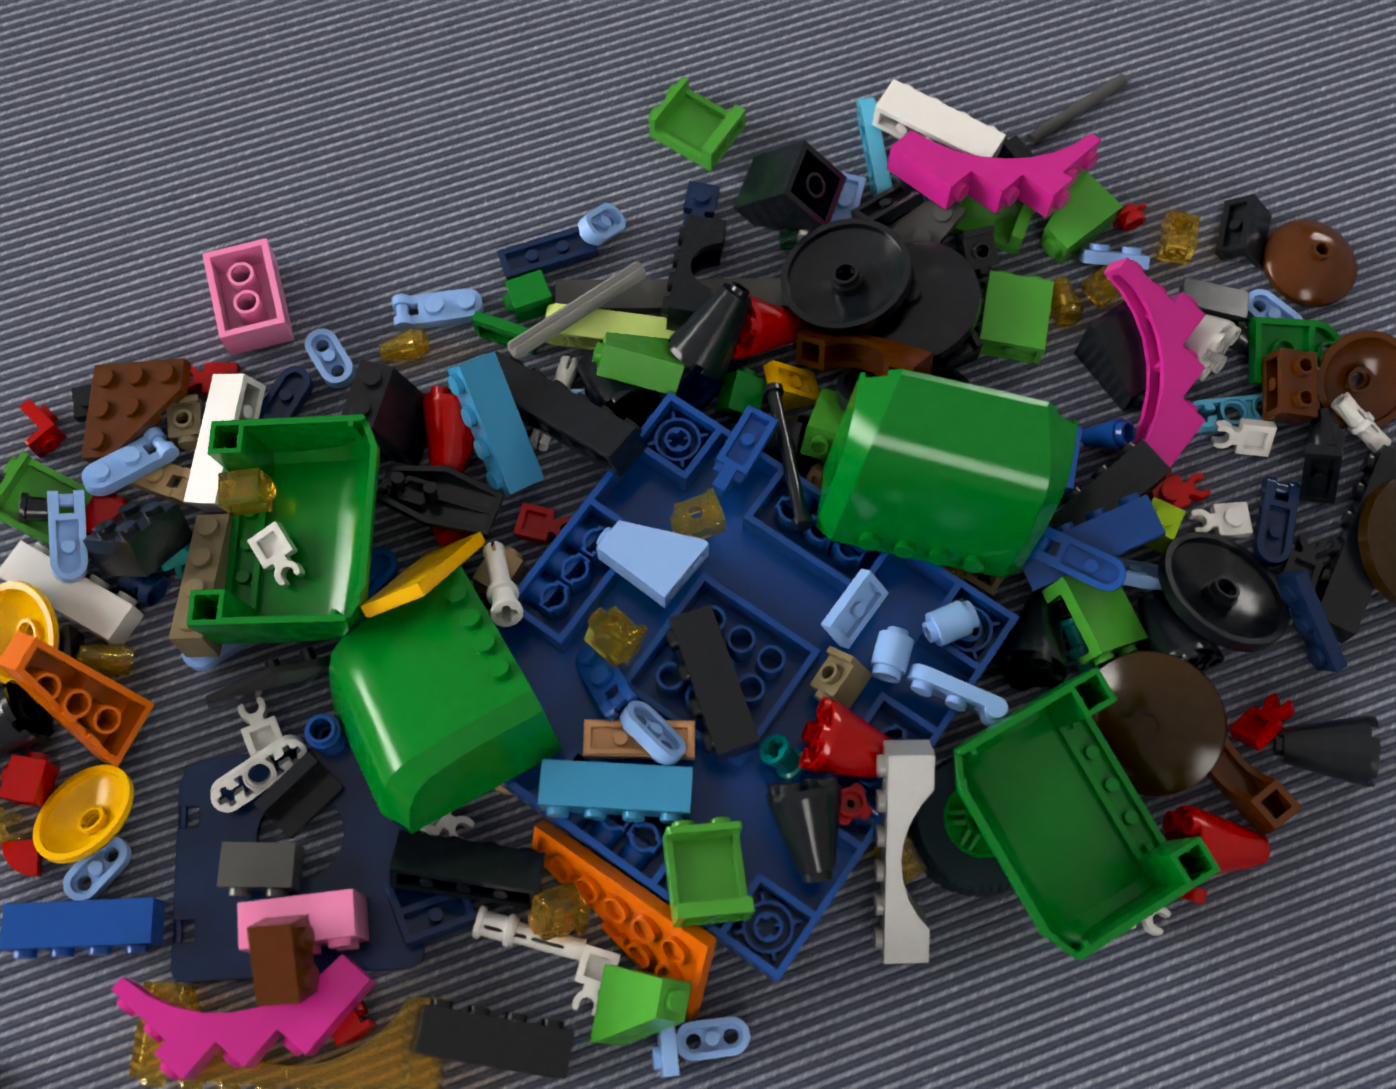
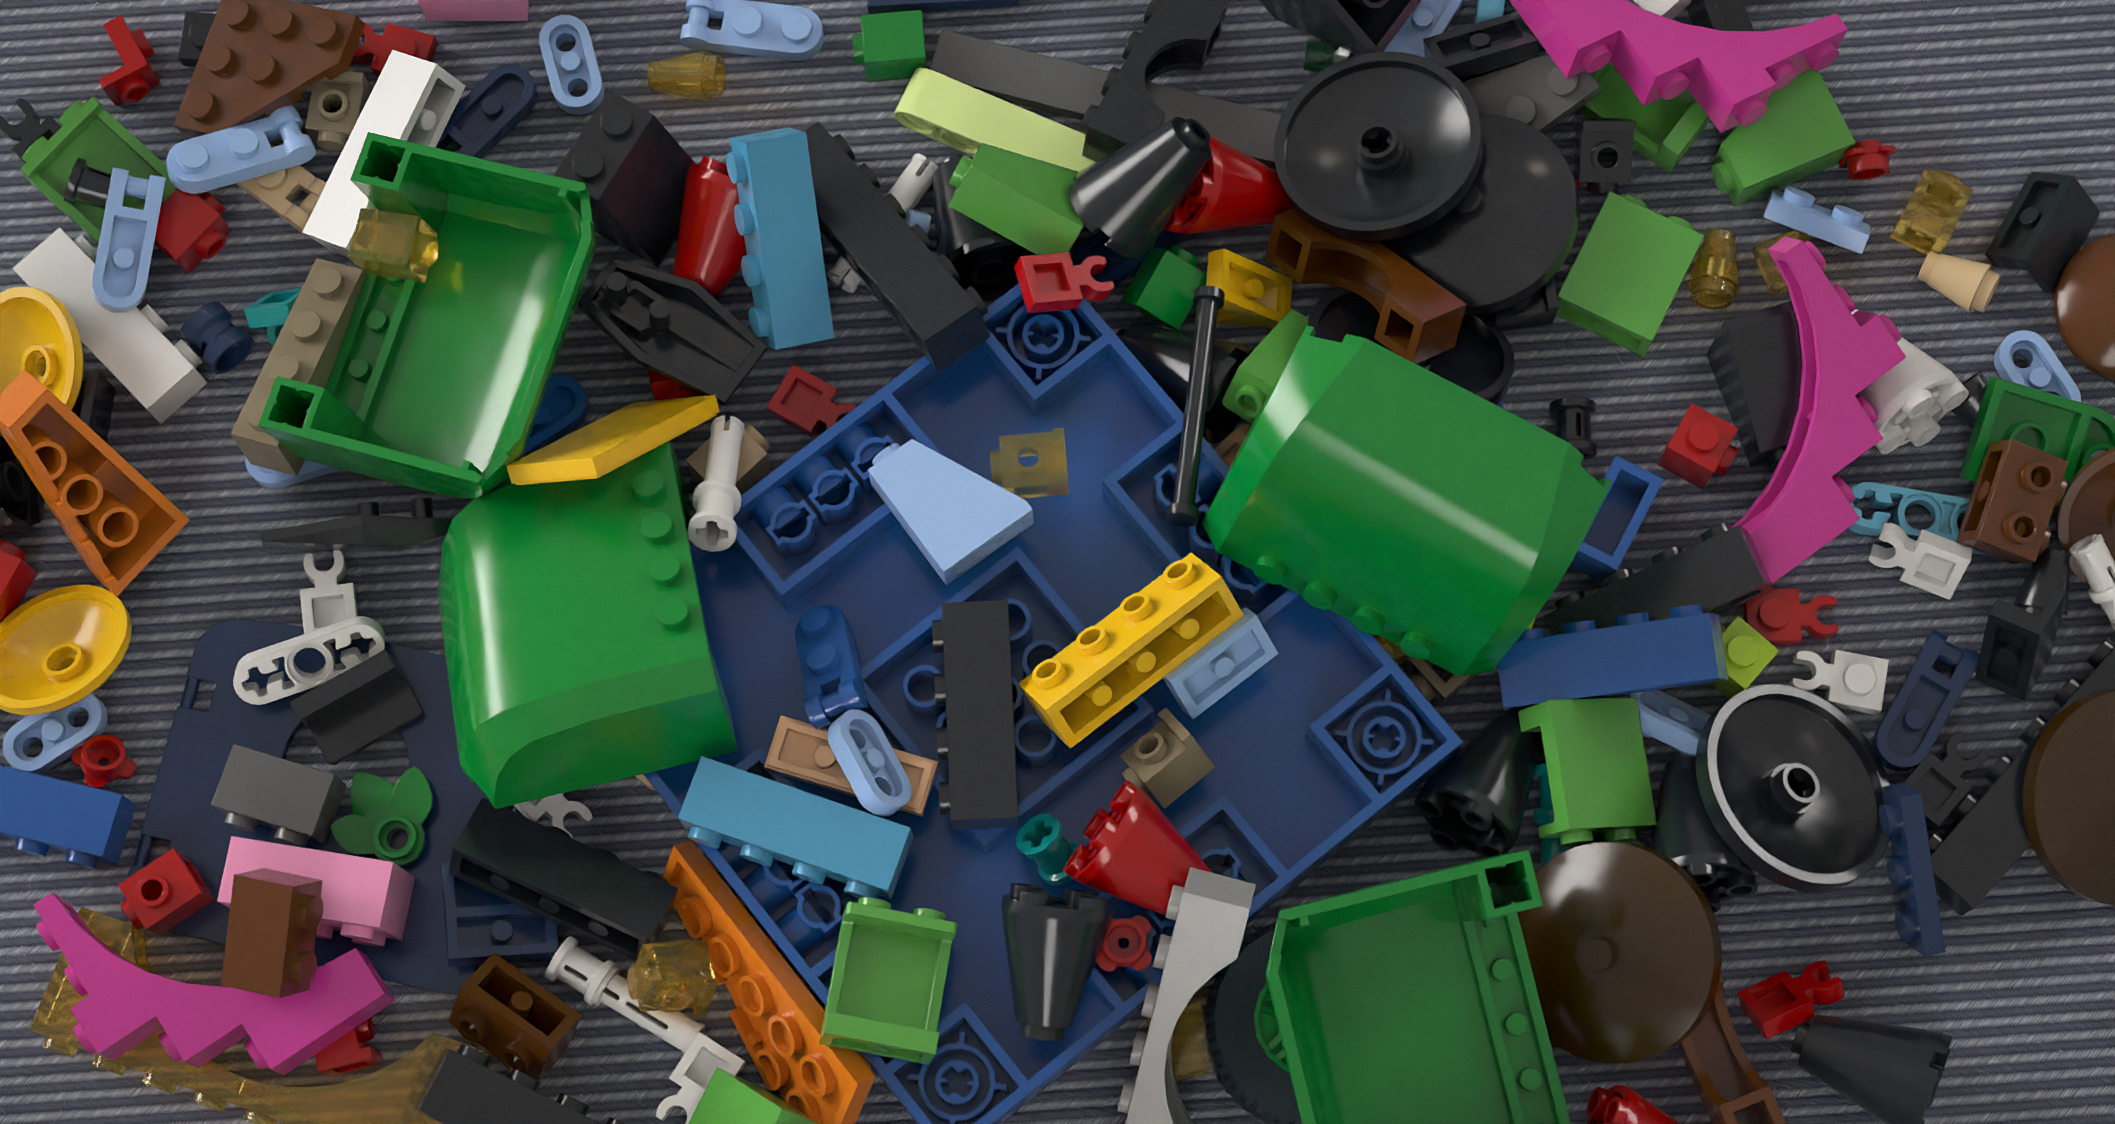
camera: 20 degrees right, 5 degrees up
(107, 658) = (138, 434): clear yellow cone -> none
(132, 871) = (102, 749): none -> red plate
(138, 539) = (225, 273): black brick -> none
(199, 955) = (164, 893): none -> red brick
(274, 550) = (411, 342): white plate -> none
(318, 728) = (406, 622): blue brick -> none
(333, 858) = (383, 810): none -> green plate
(459, 970) = (514, 1018): none -> reddish brown brick
(497, 329) = (842, 94): green tile -> none
(576, 310) = (955, 89): light grey axle -> none
(614, 635) = (858, 605): clear yellow brick -> none
(678, 404) = (1054, 284): none -> red plate
(742, 449) = (1130, 378): blue hinge -> none
(797, 614) = (1131, 649): none -> yellow brick
(891, 654) = (1251, 745): light blue brick -> none
(950, 622) = (1352, 723): light blue brick -> none
(957, 693) = (1326, 828): light blue plate -> none
(1080, 561) = (1578, 682): blue plate -> none
(1092, 404) = (1700, 447): none -> red brick
(1109, 435) = (1710, 500): blue cone -> none
(1210, 270) = (1960, 280): none -> tan cone
(1217, 299) = (1947, 331): panel -> none

